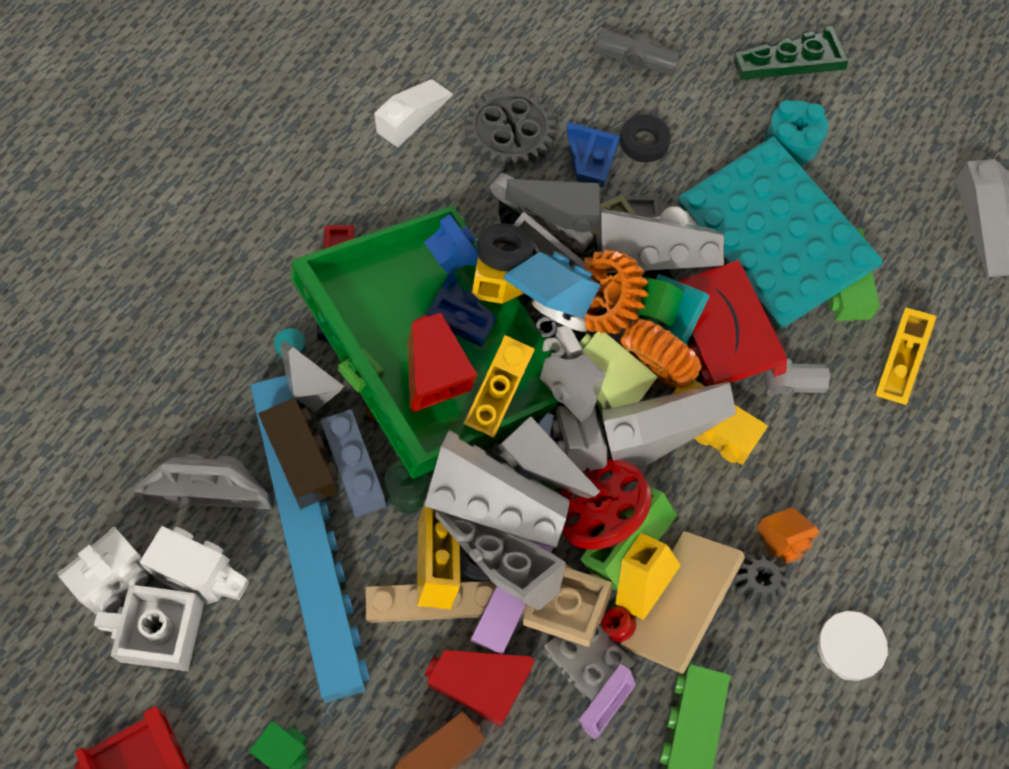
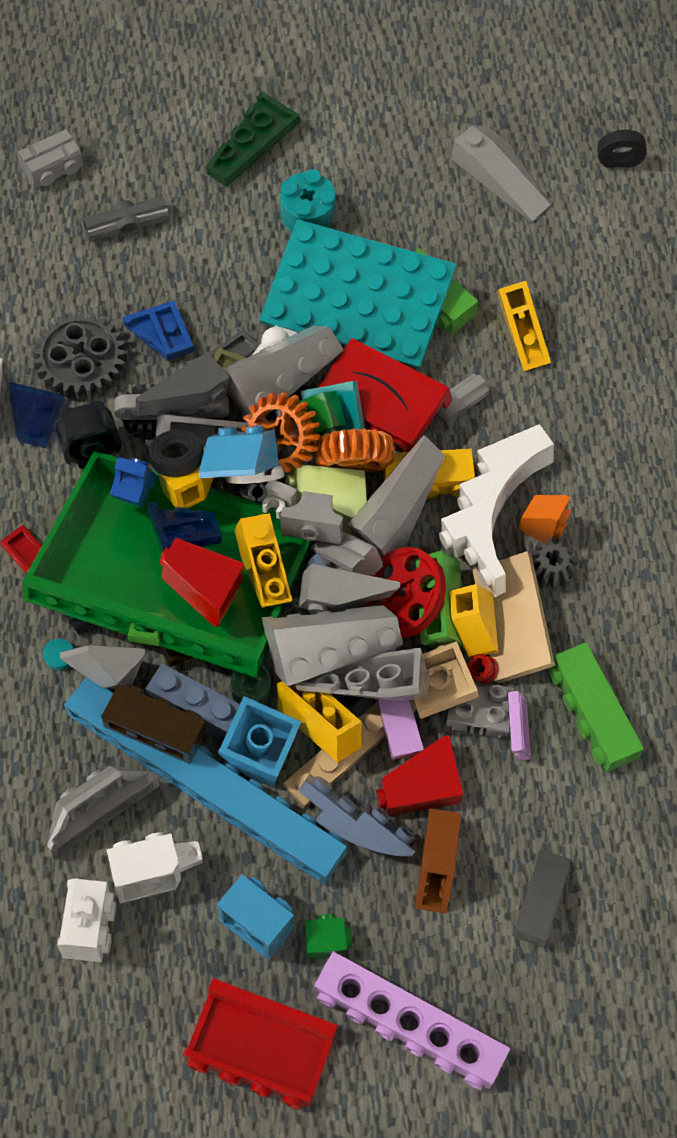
camera: 40 degrees left, 0 degrees up
(142, 611) = (152, 948): white hinge -> none
(235, 683) = (256, 916): none -> dark azure brick
(372, 534) = (259, 741): none -> dark azure slope
(394, 683) = (366, 829): none -> sand blue slope
(438, 149) = (34, 413): none -> clear blue wing
(461, 185) = (87, 430): none -> black brick
(650, 124) = (187, 273): black tyre -> none
(778, 466) = (499, 473): none -> white arch
(852, 645) = (646, 562): white tile -> none

